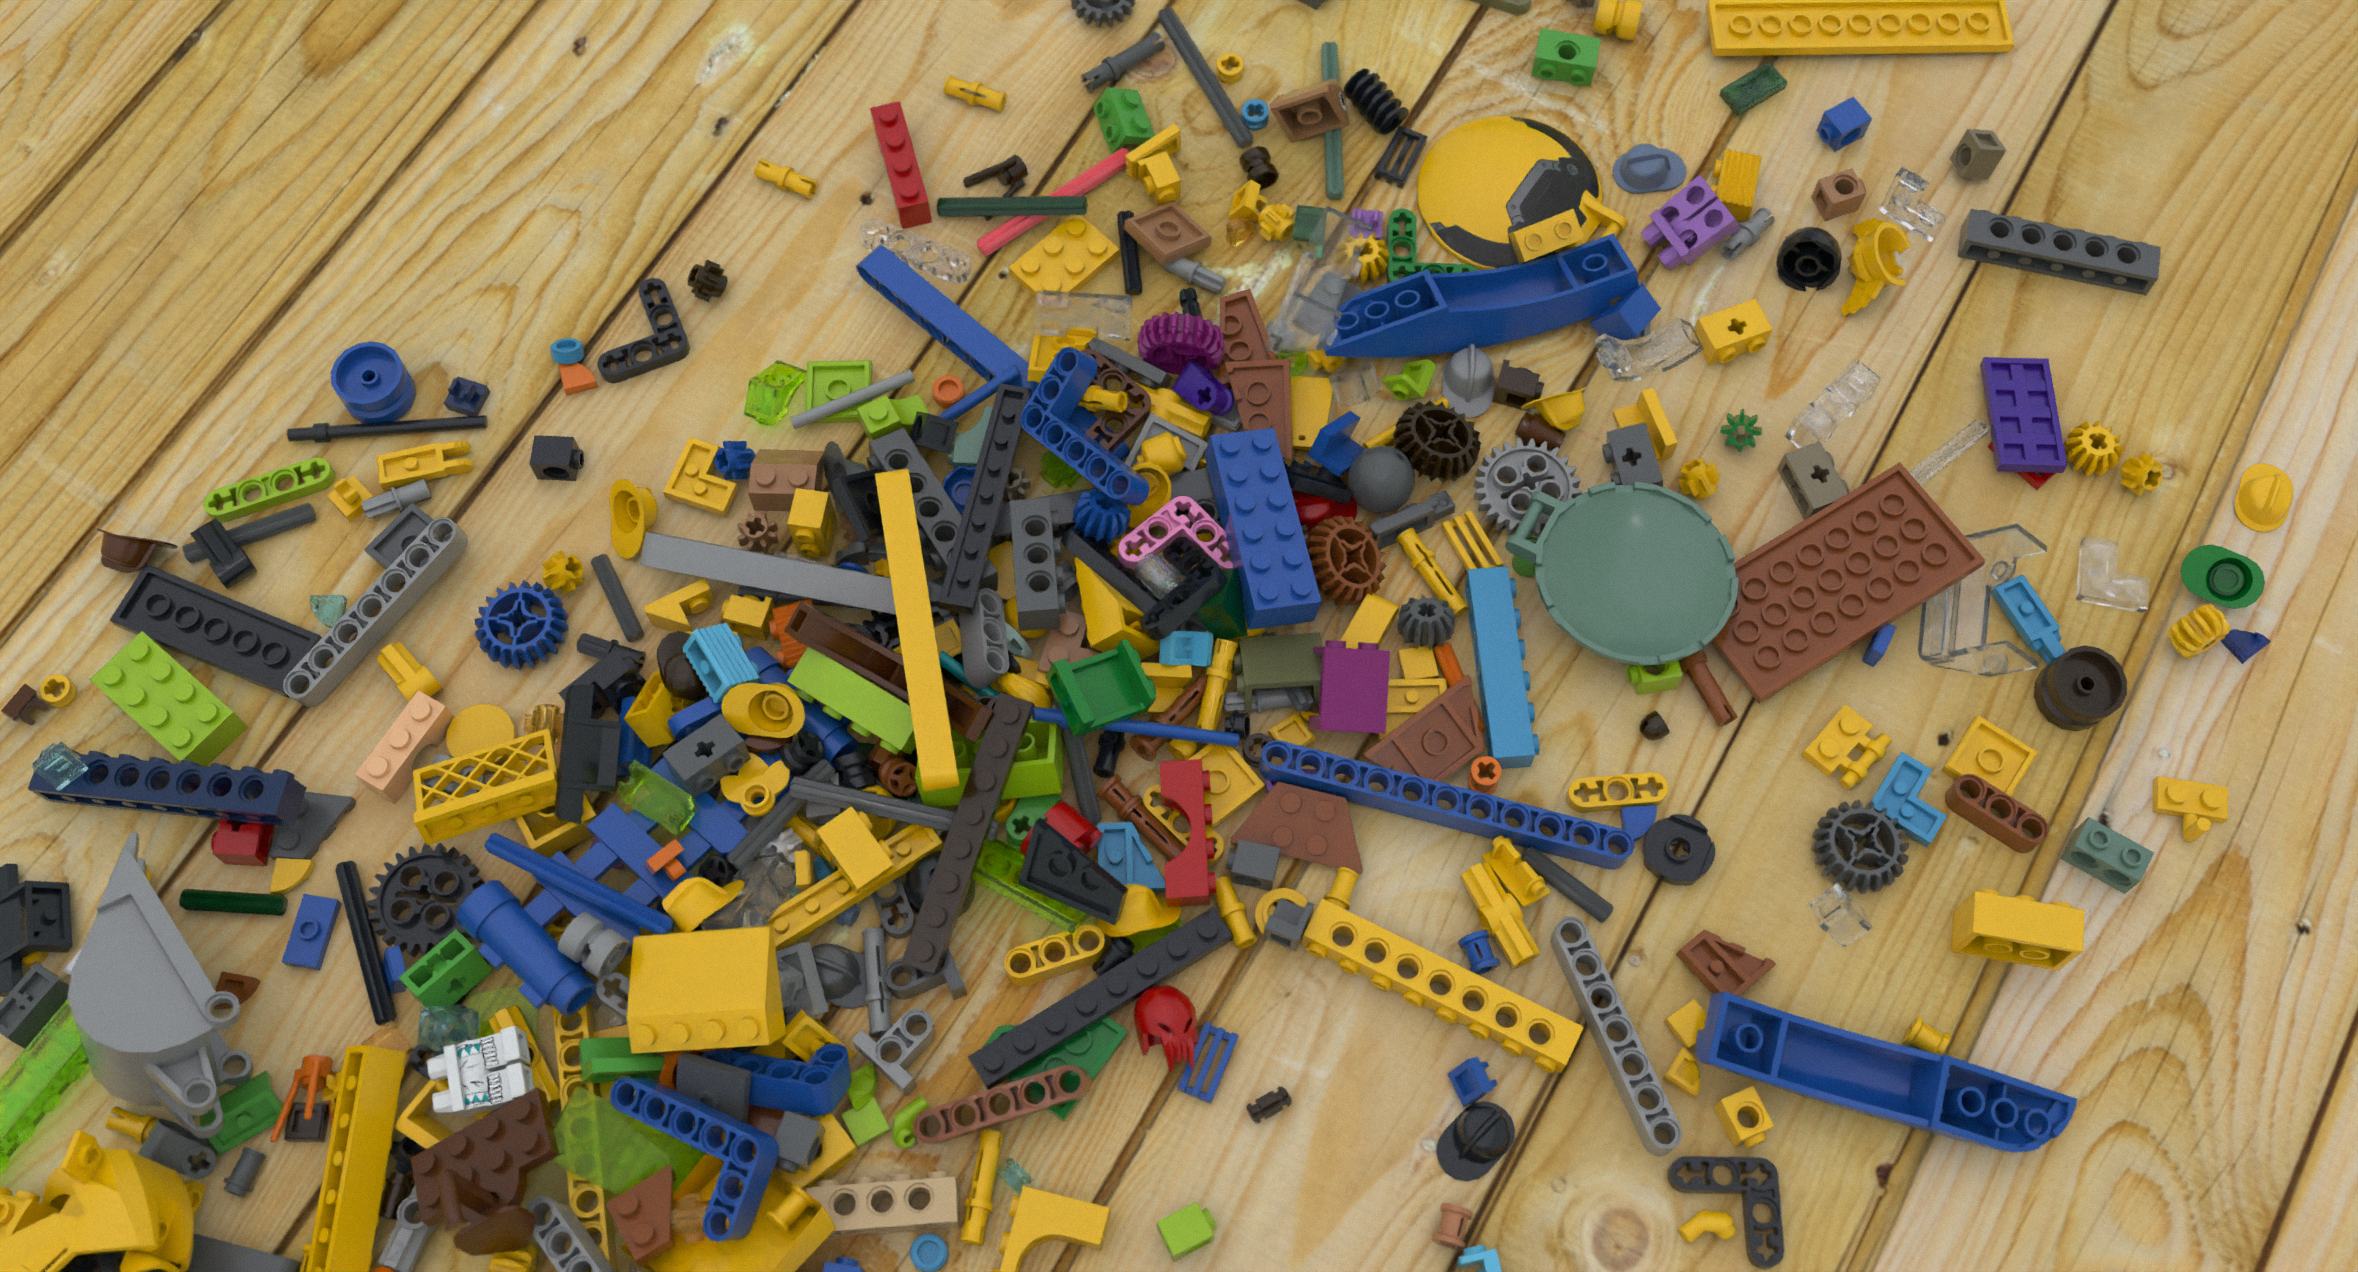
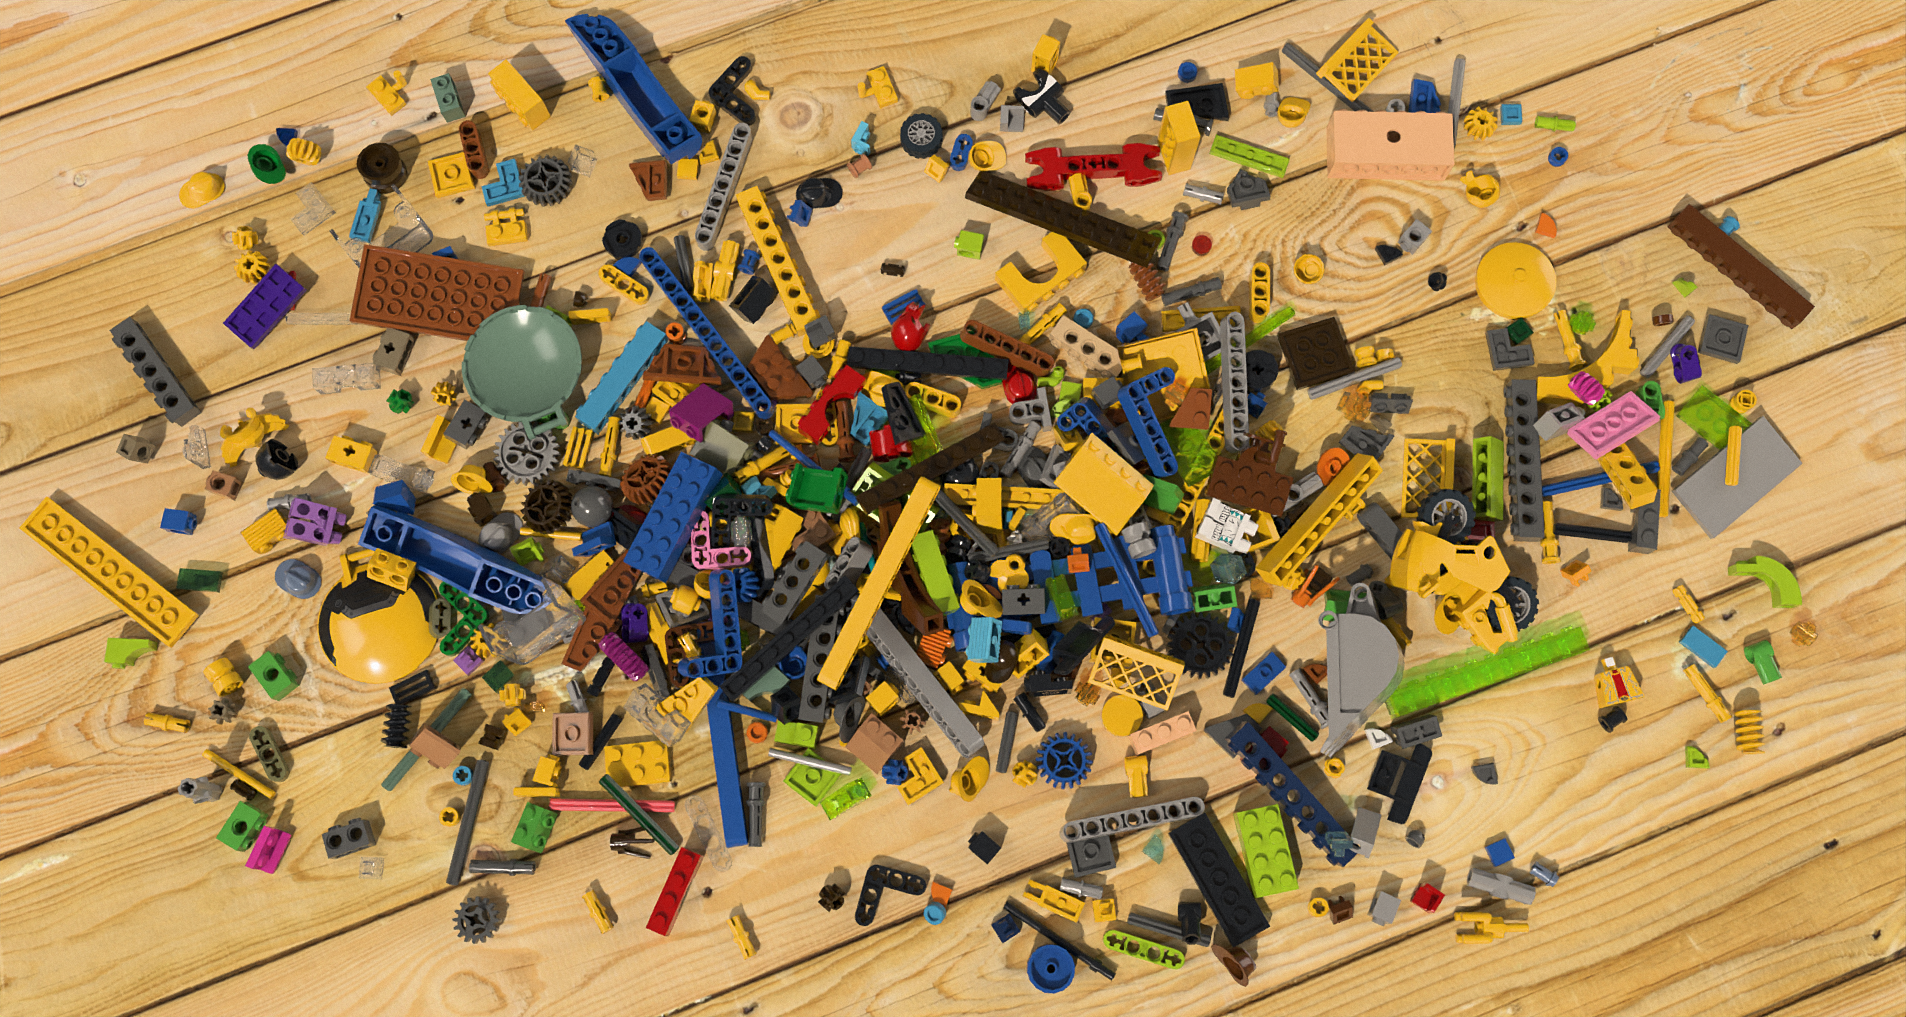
camera: 140 degrees left, 10 degrees up
(34, 815) = (1365, 831): none -> light grey hinge
(203, 939) = (1297, 676): none -> light grey pin
(882, 314) = (755, 801): none -> dark grey pin
(947, 1075) = (1019, 385): none -> red piece
(1167, 691) = (786, 478): none -> yellow bush
(1422, 898) = (753, 299): none -> black brick
(1437, 245) = (444, 618): none -> olive beam
(1617, 712) = (590, 316): none -> yellow tile

